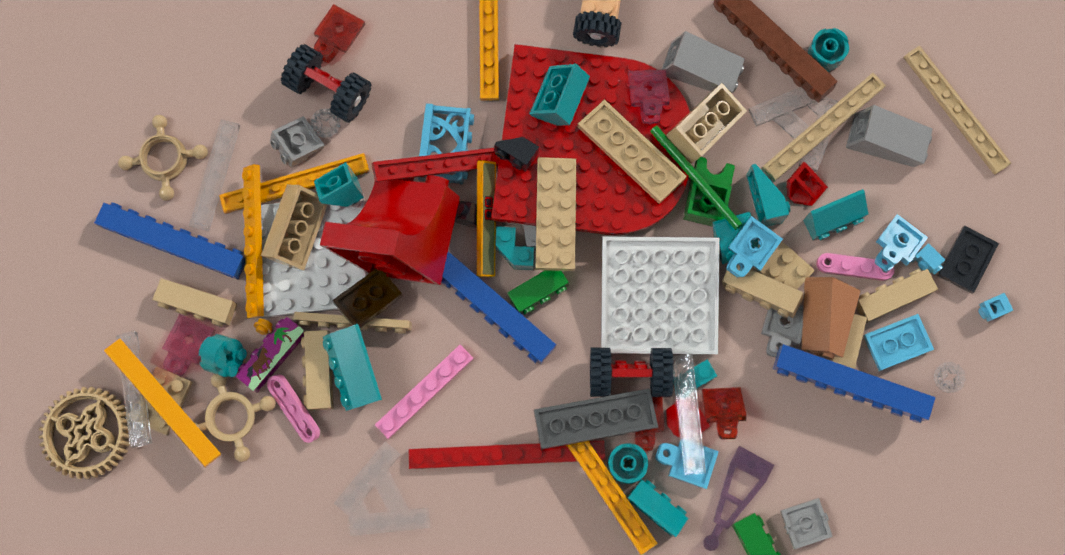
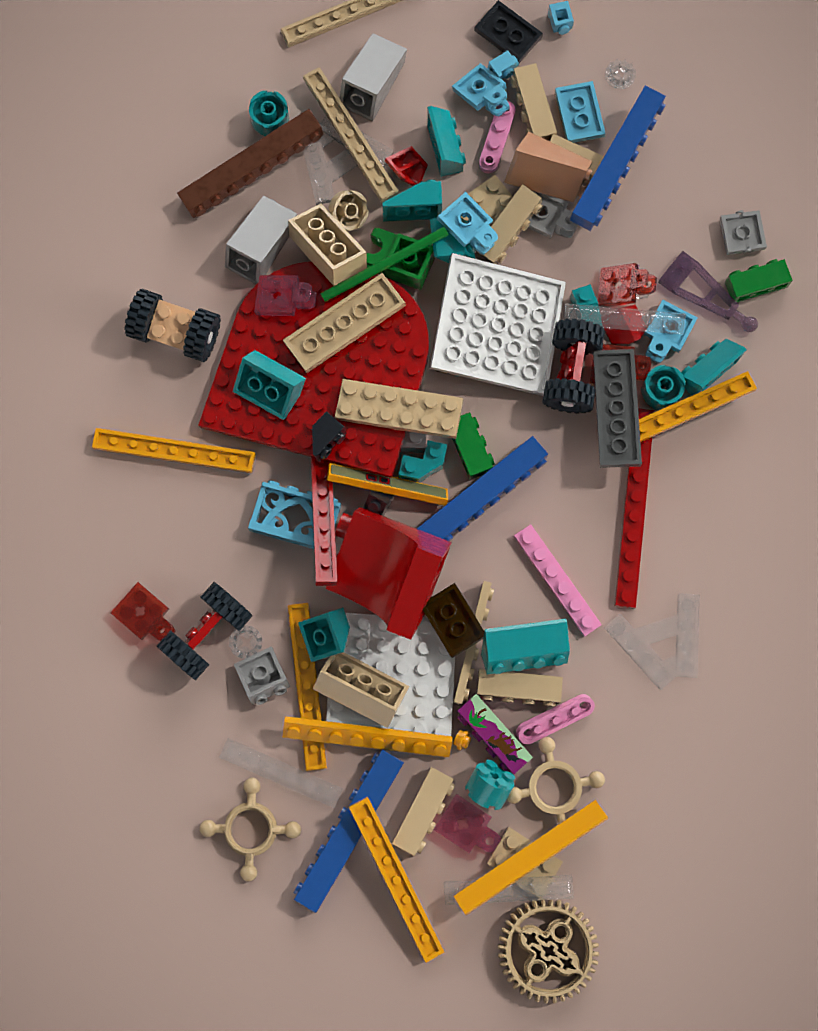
camera: 85 degrees left, 0 degrees up
(130, 286) = (396, 879): none -> light orange plate
(746, 137) = (349, 209): none -> tan cylinder

